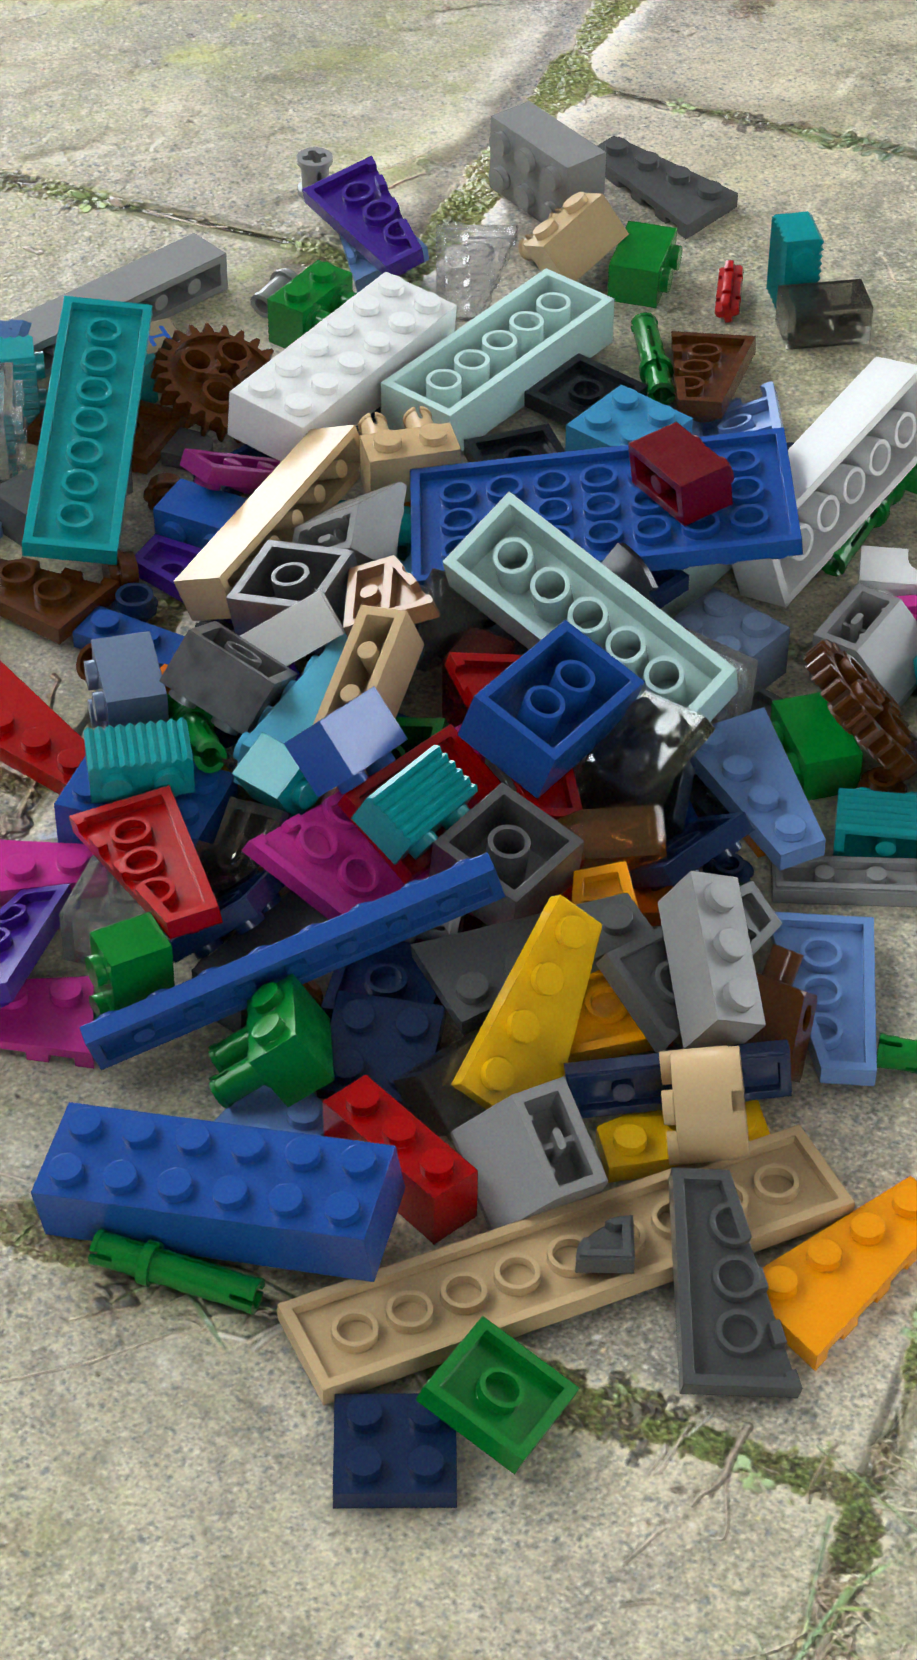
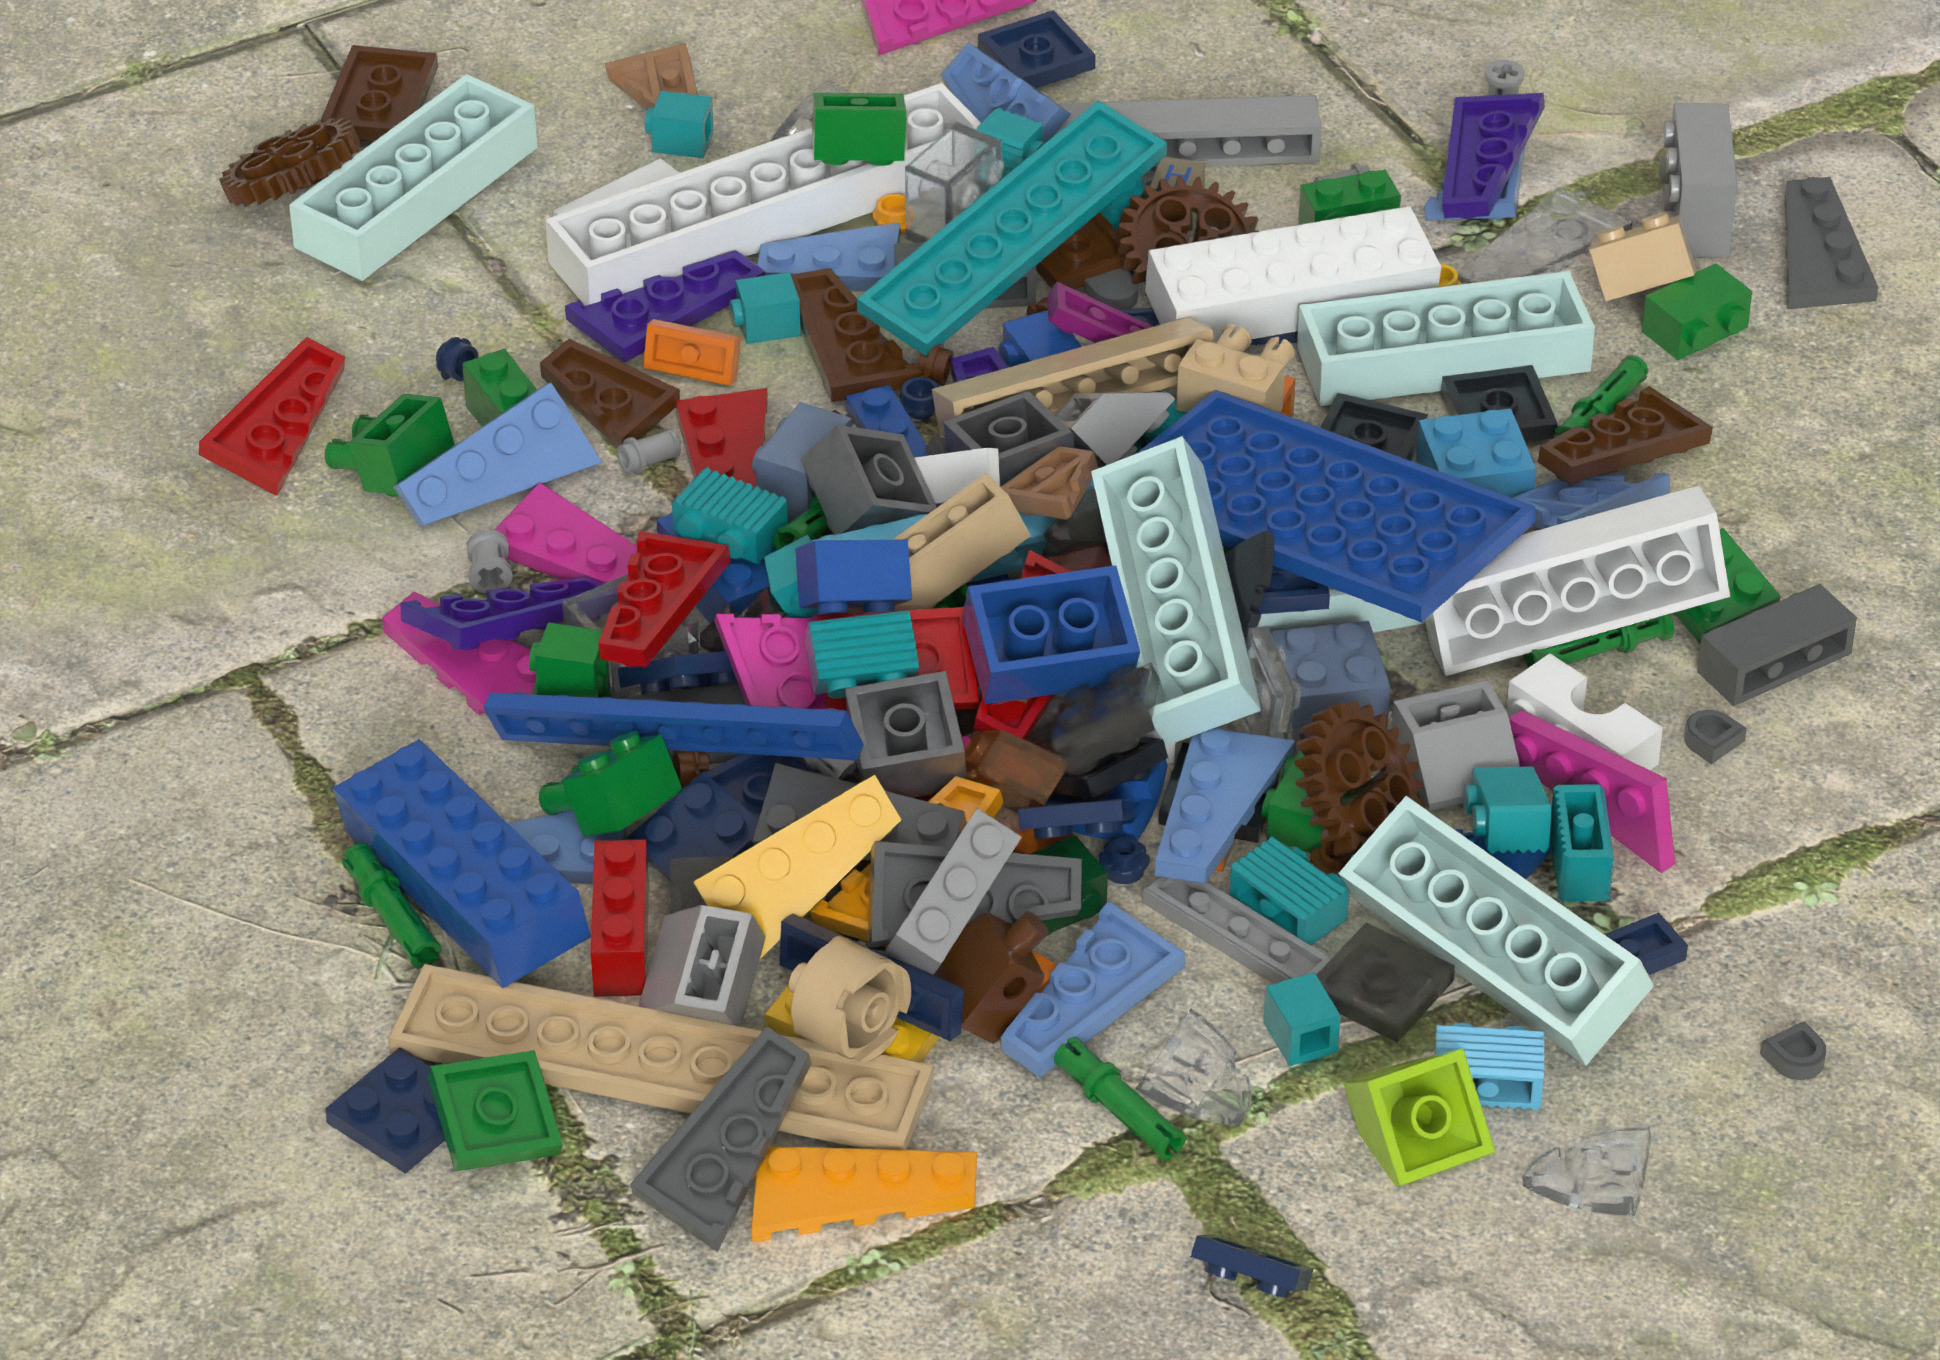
camera: 40 degrees right, 0 degrees up
(608, 1248) = (684, 1064): dark grey tile -> none
(681, 473) = (1385, 499): dark red brick -> none
(729, 291) = (1753, 375): red axle -> none
(793, 251) = (1820, 374): teal brick -> none
(824, 314) = (1806, 438): clear smoke brick -> none

